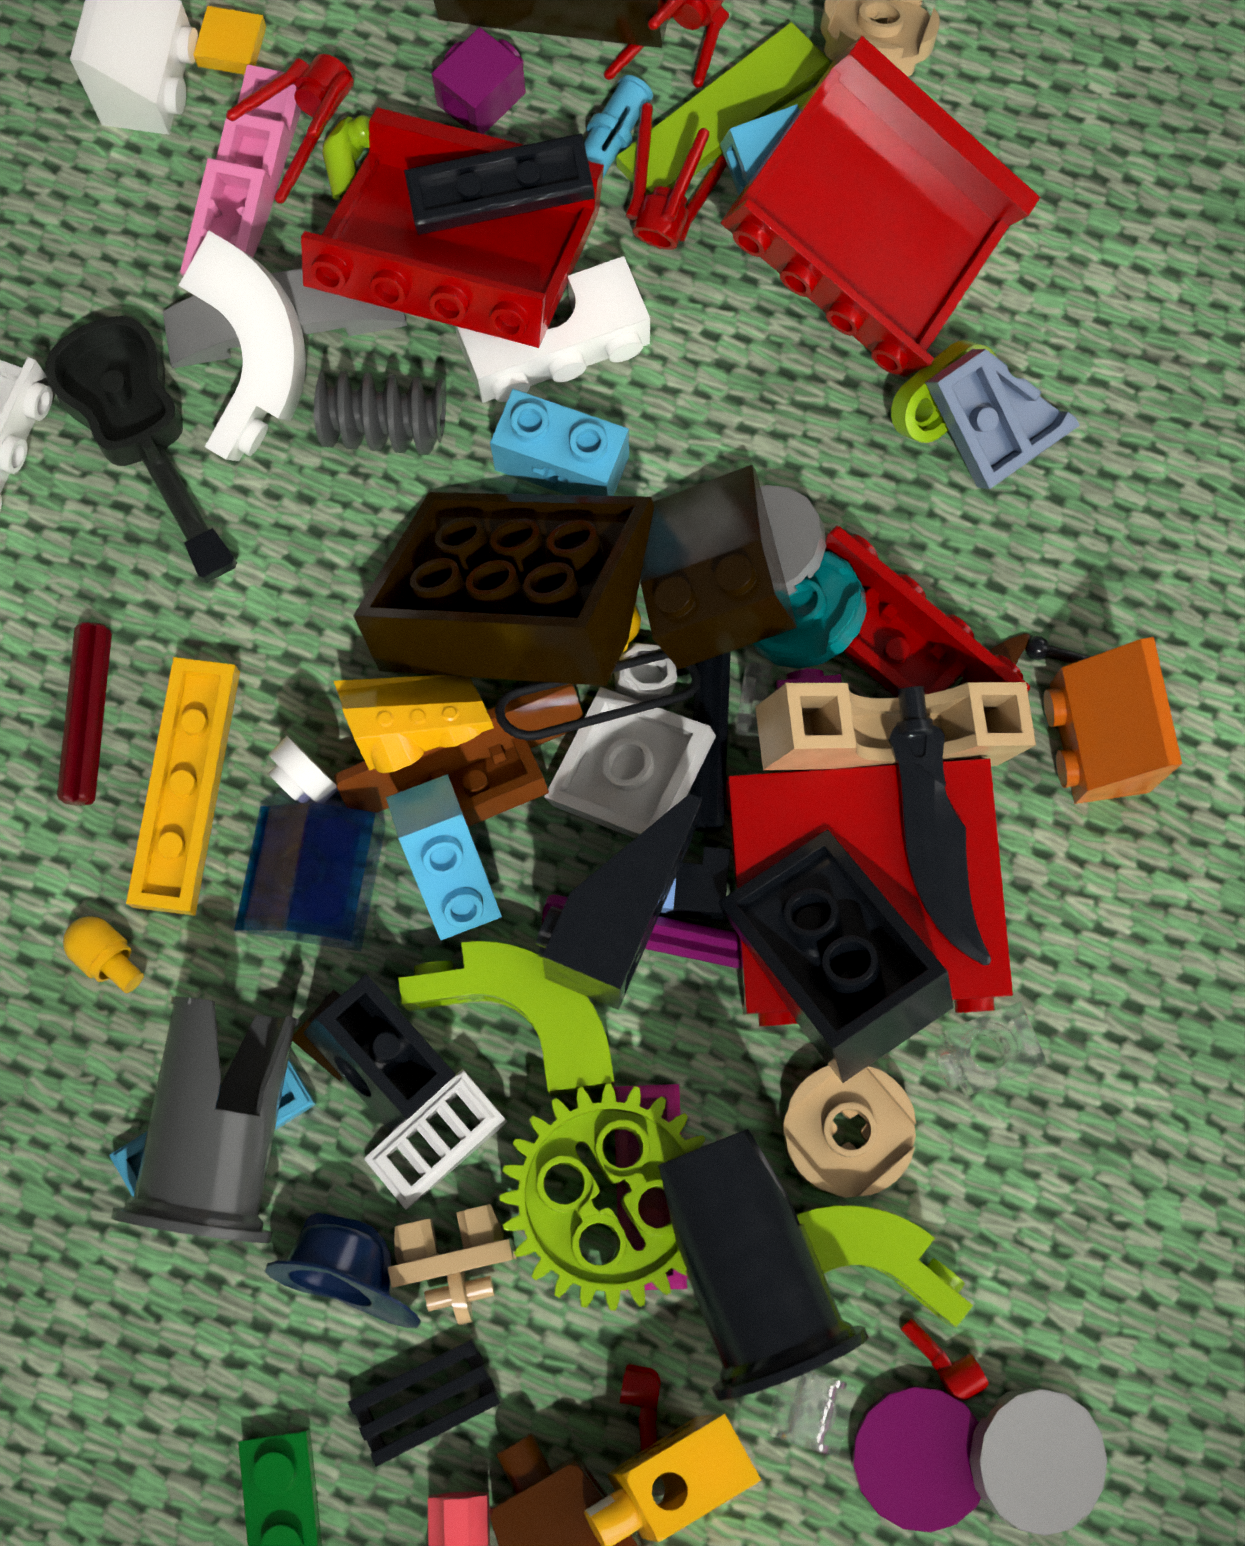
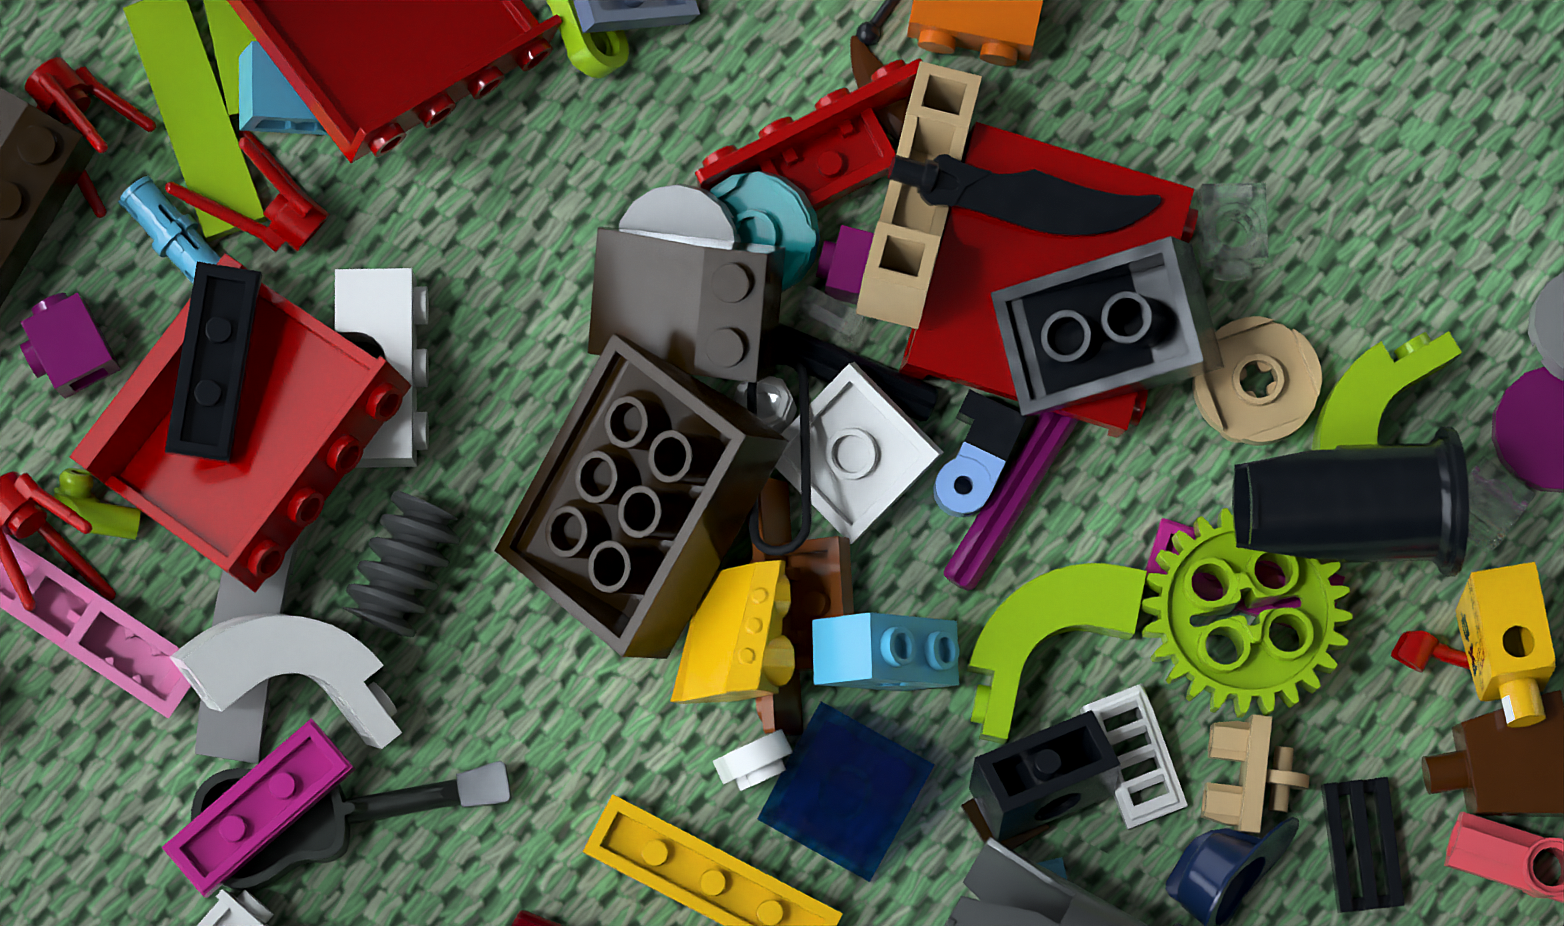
camera: 75 degrees left, 5 degrees up
(120, 367) = (258, 808): none -> dark pink tile
(559, 447) = (509, 404): medium azure brick -> none
(612, 913) = (1014, 511): black slope -> none
(961, 1378) = (1502, 369): red hand -> none

